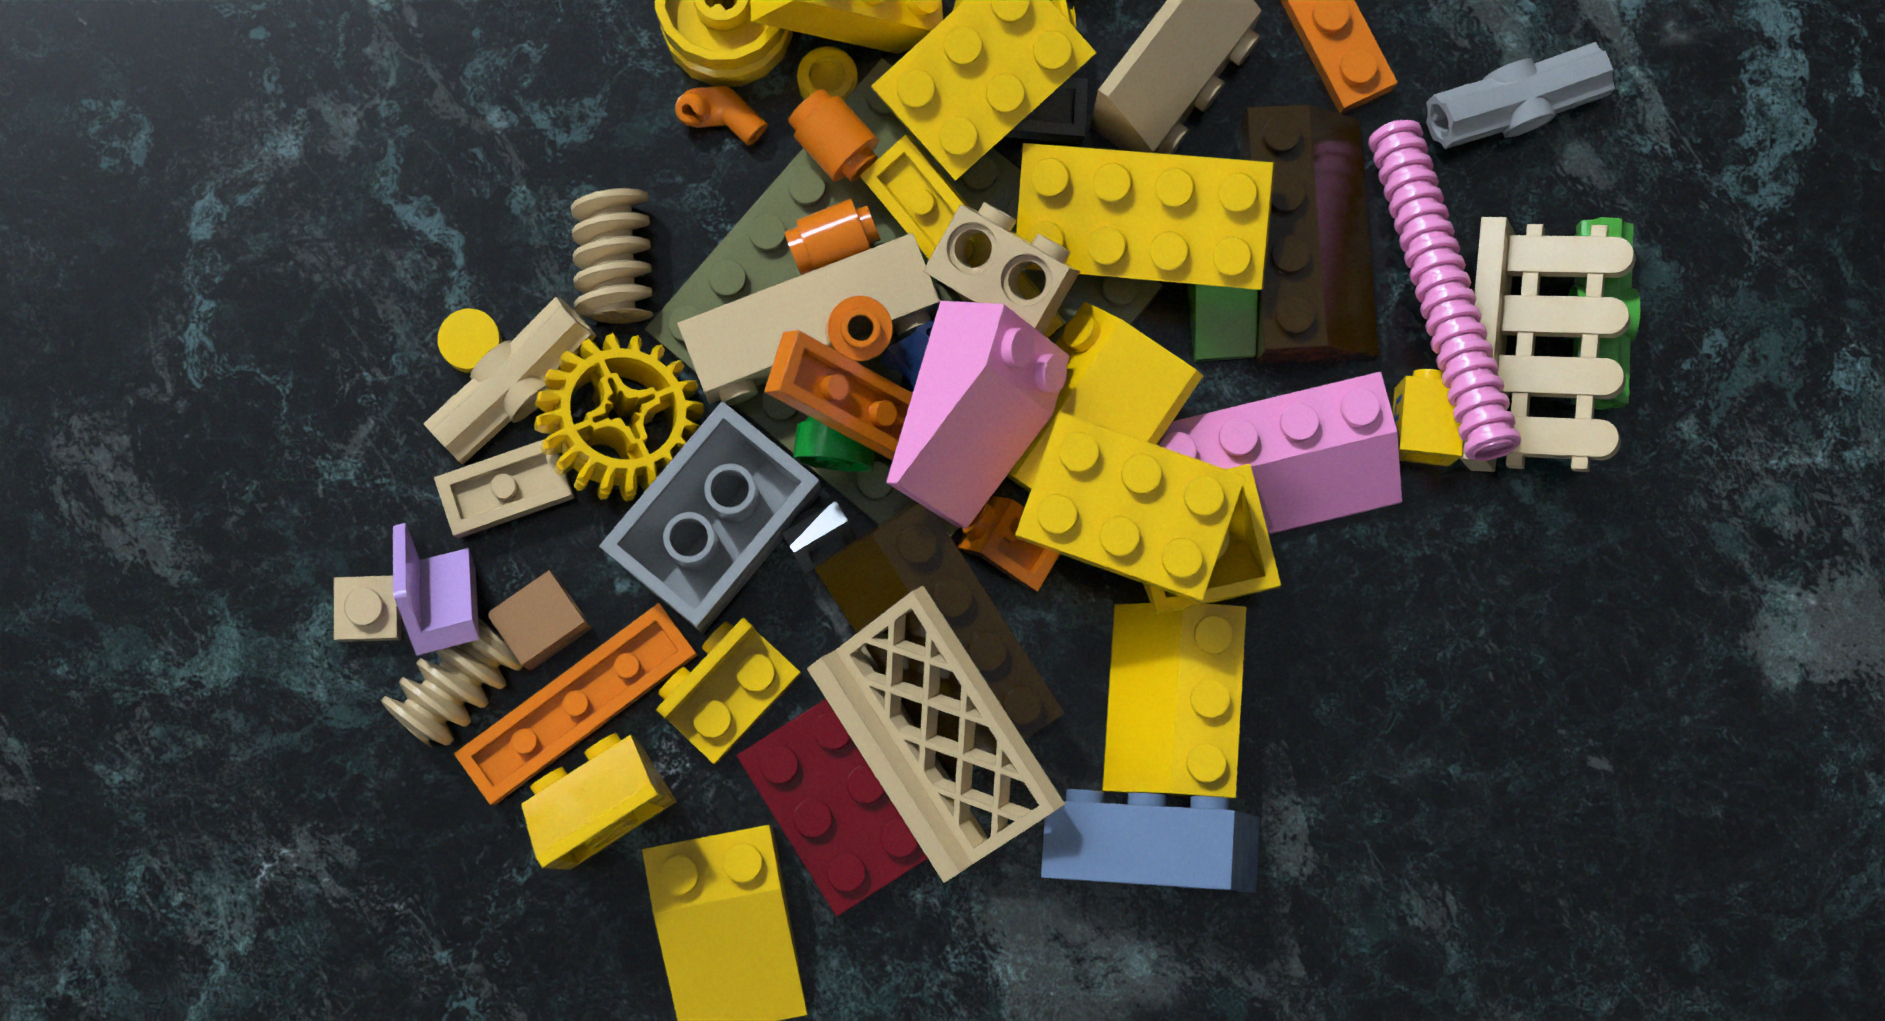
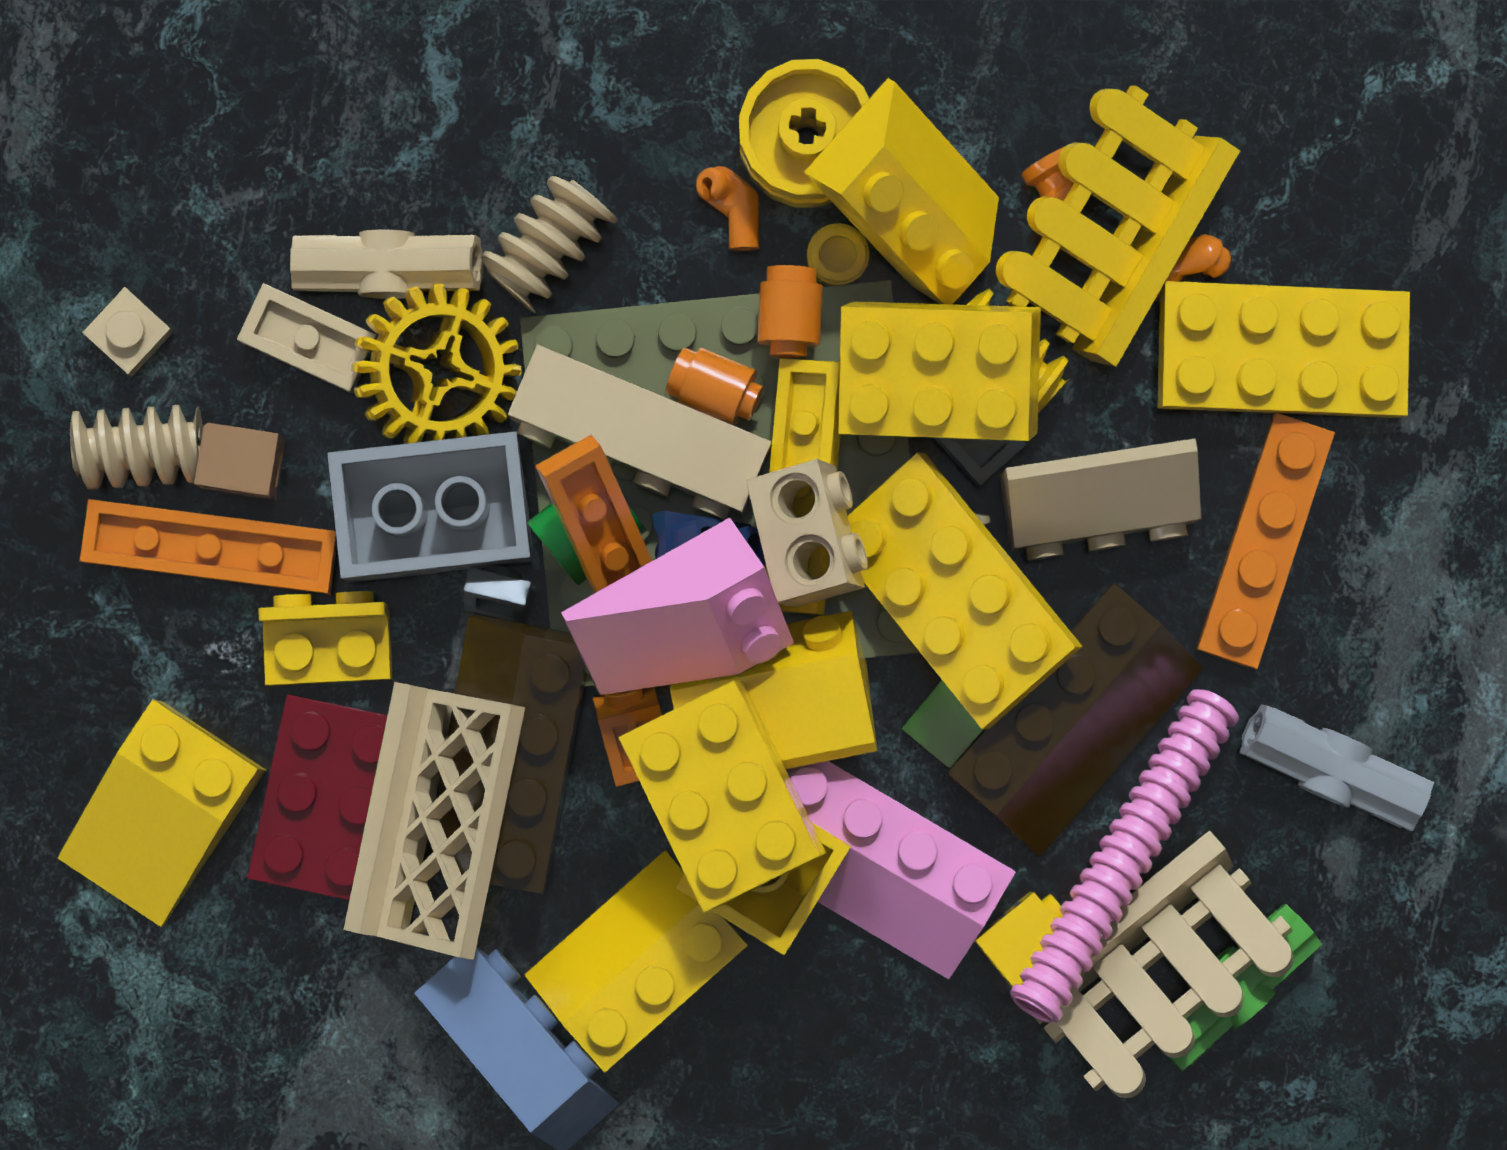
camera: 50 degrees right, 5 degrees up
(434, 595) = (181, 373): lavender panel -> none
(467, 338) = (387, 201): yellow tile -> none
(595, 803) = (152, 631): yellow slope -> none
(837, 328) = (669, 465): orange brick -> none

